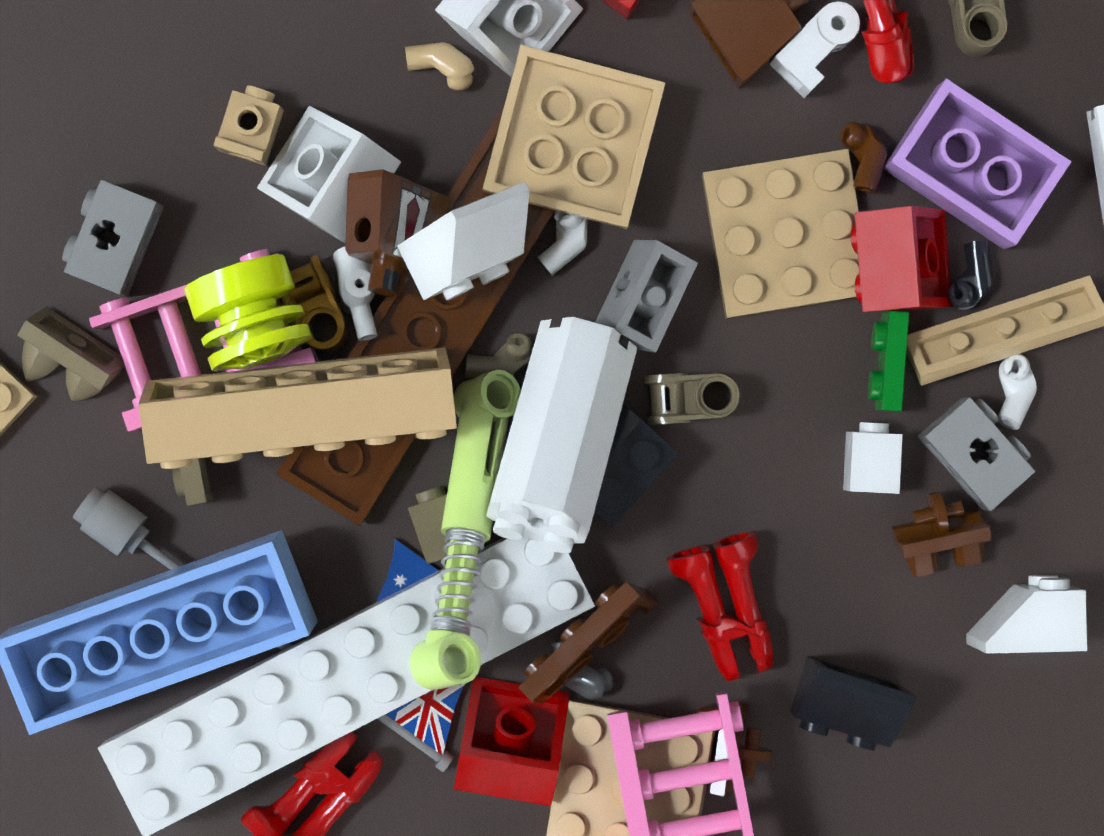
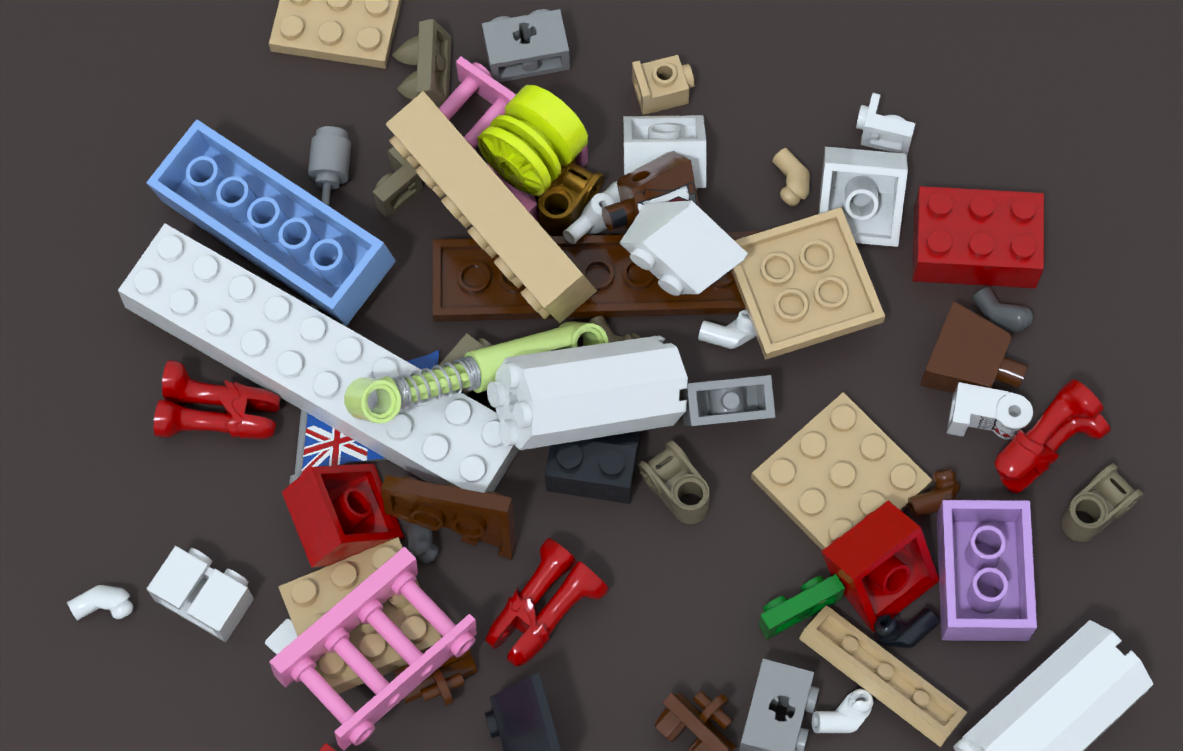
camera: 60 degrees right, 20 degrees down
(872, 459) = (719, 639): white brick -> none

